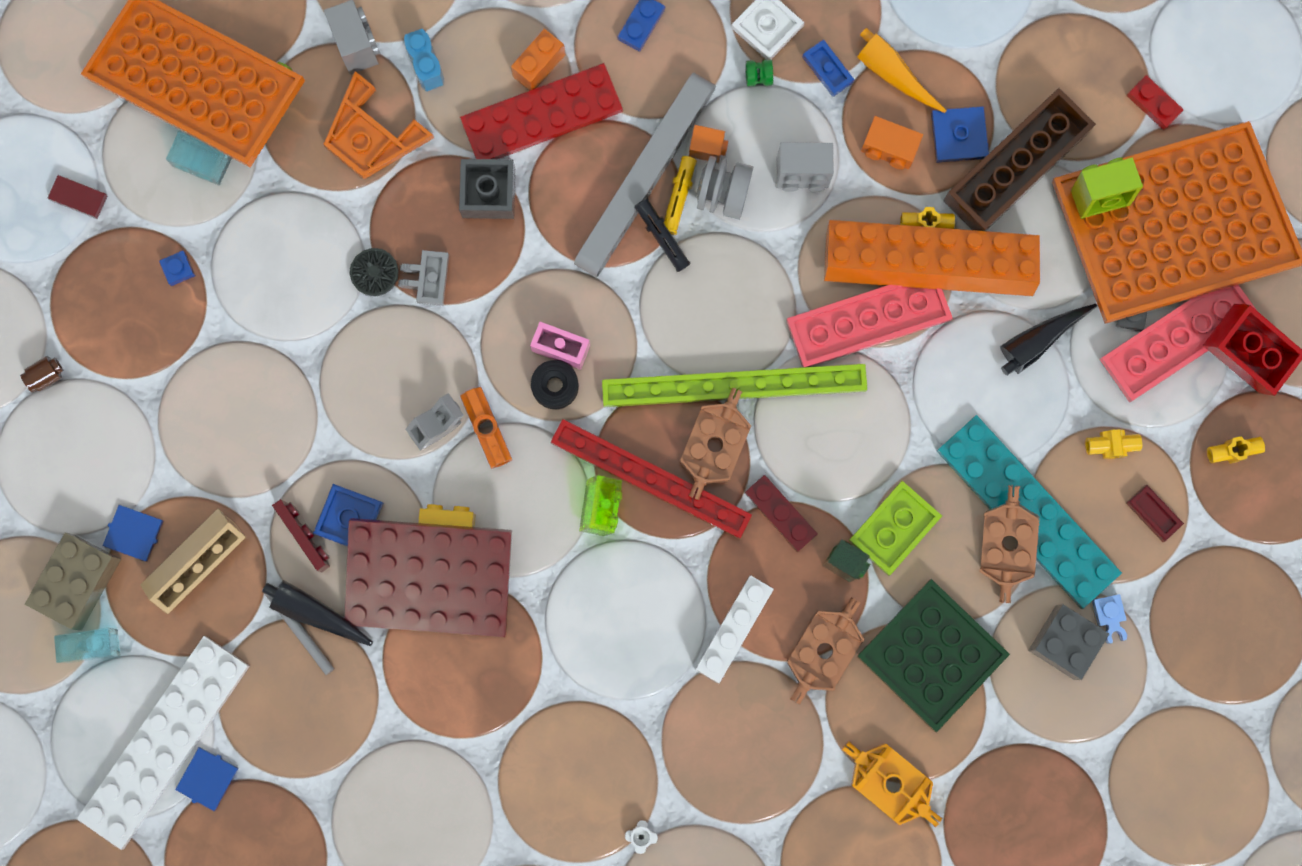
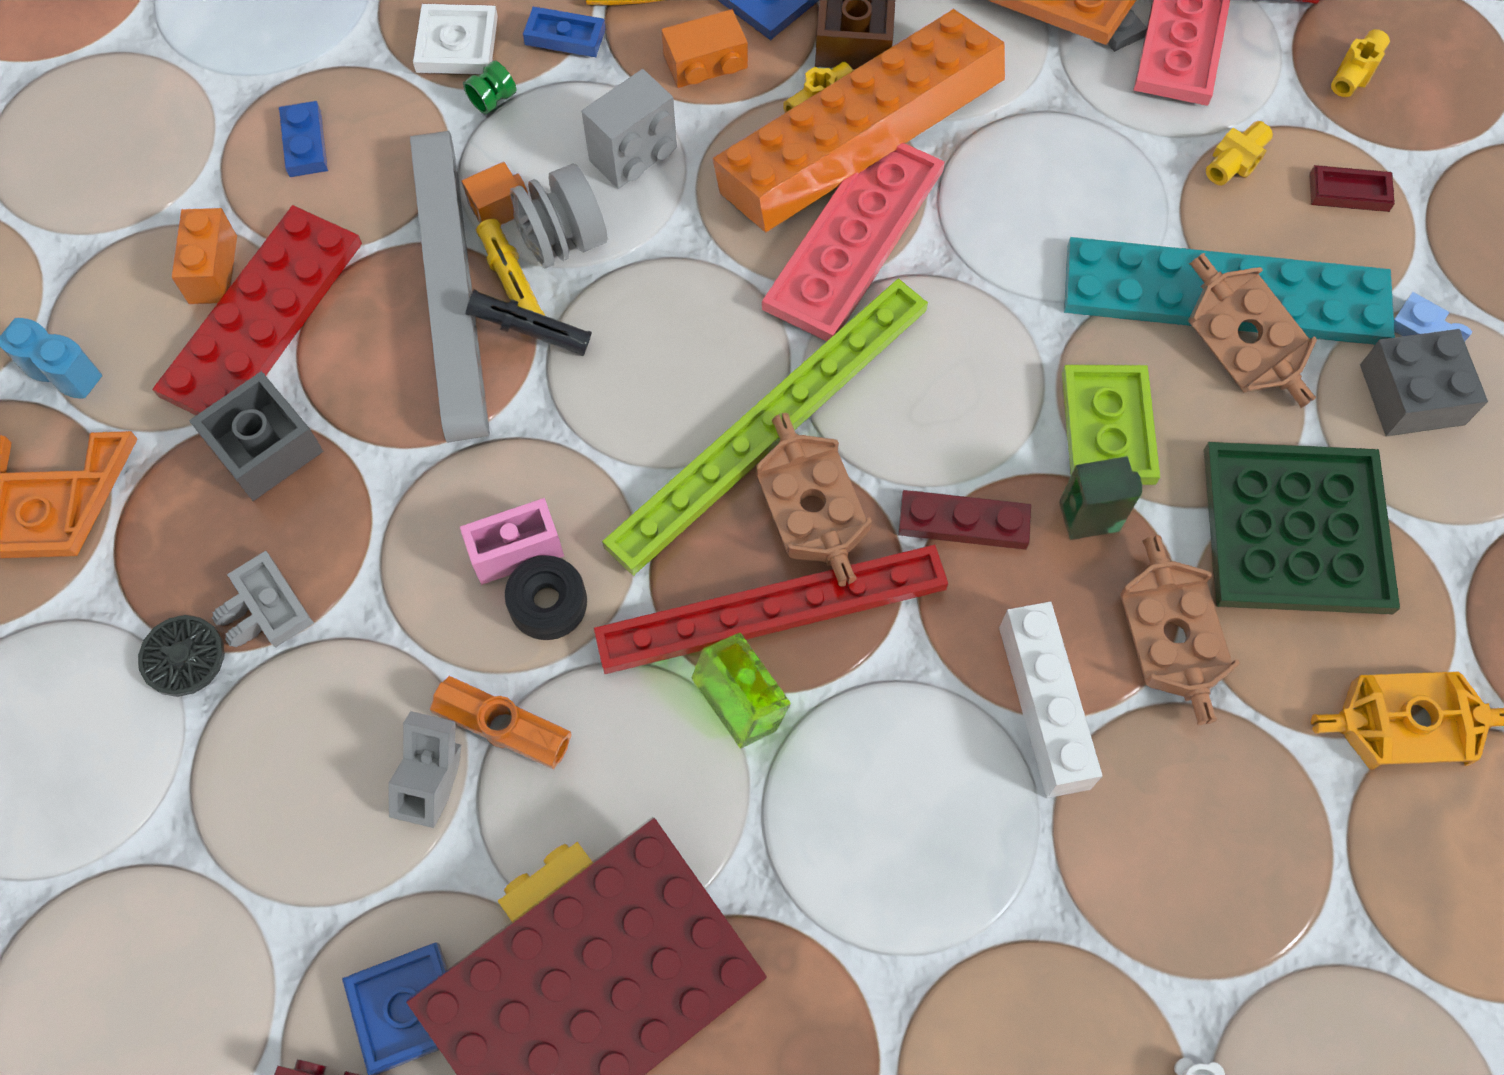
camera: 40 degrees left, 15 degrees down
(1034, 342) = (1050, 127): black piece -> none

